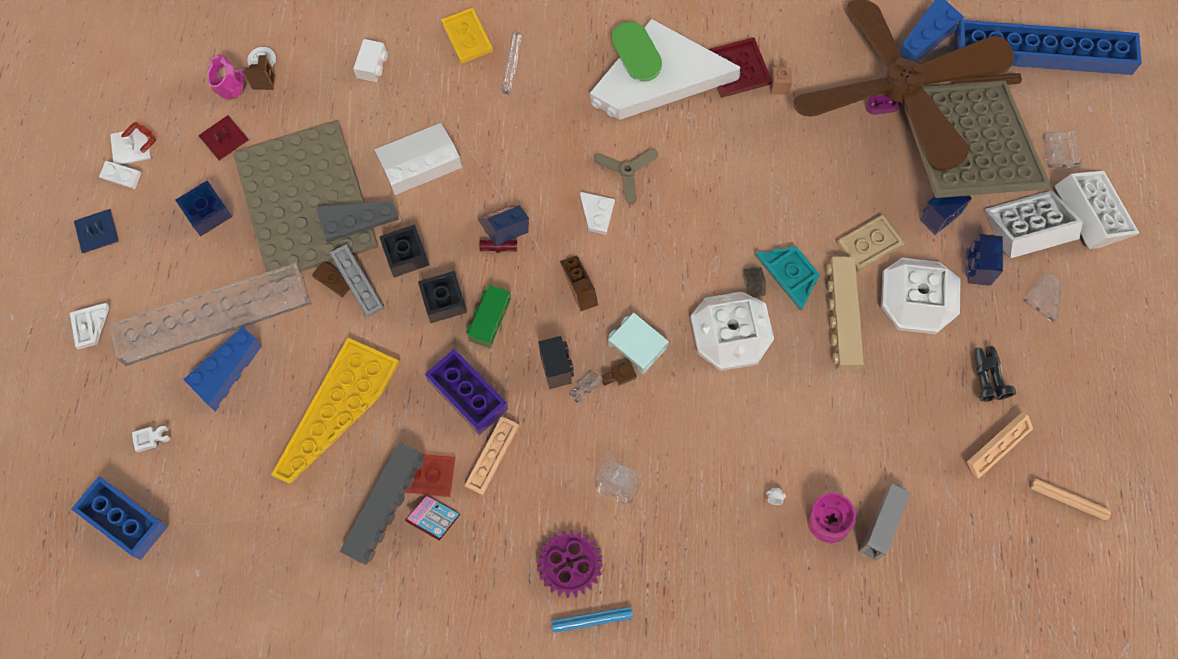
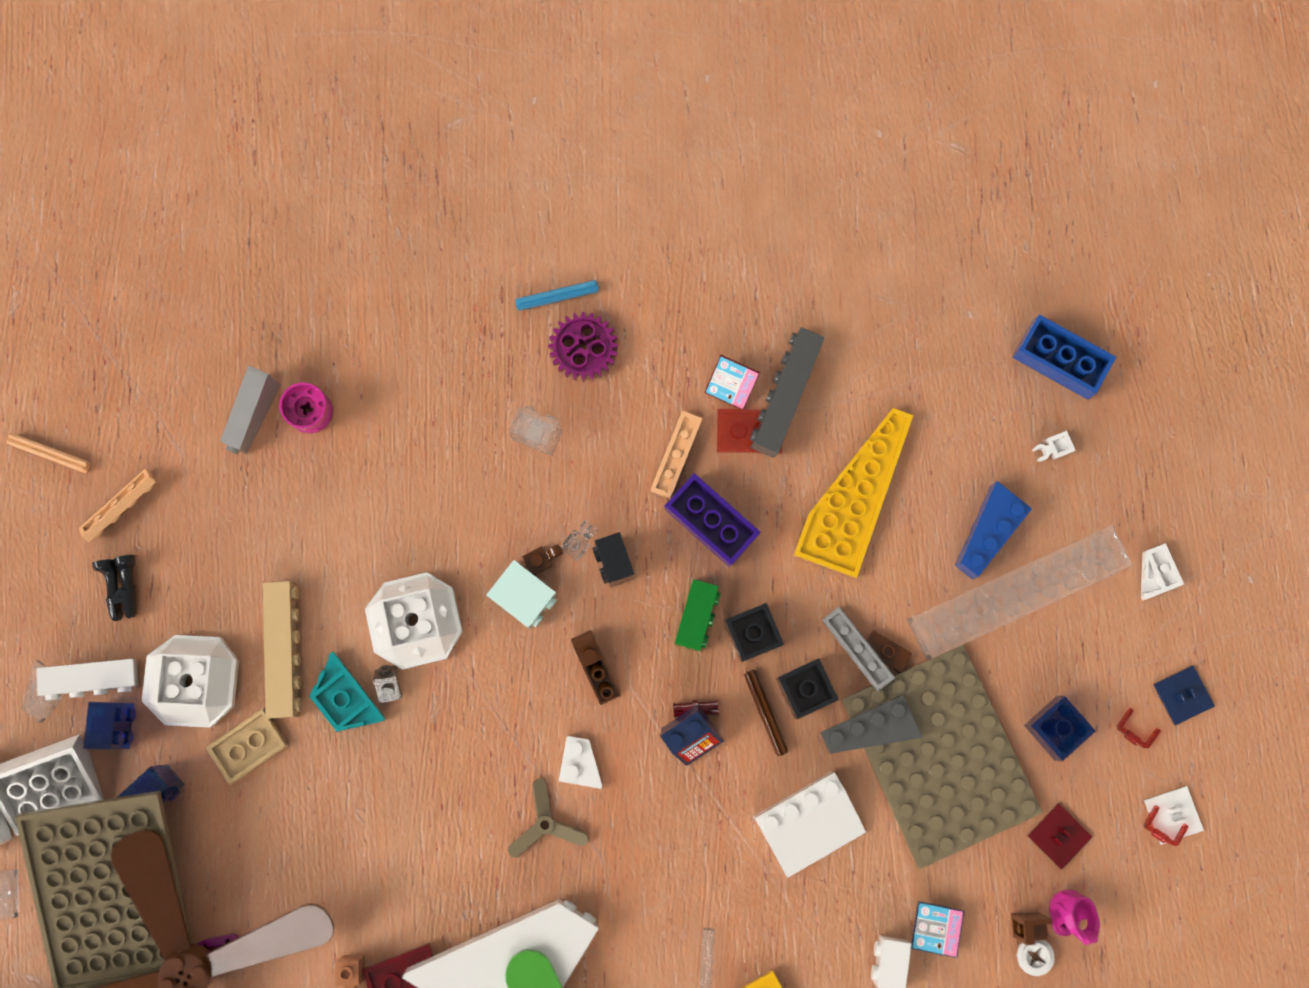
camera: 175 degrees right, 10 degrees up
(120, 175) = (1175, 771): white plate -> none
(146, 201) = (1130, 736): none -> clear red piece
(331, 79) = (937, 929): none -> piece
(441, 239) = (766, 713): none -> reddish brown axle
(775, 496) = (366, 432): white plate -> none
(1008, 298) = (87, 677): none -> white brick

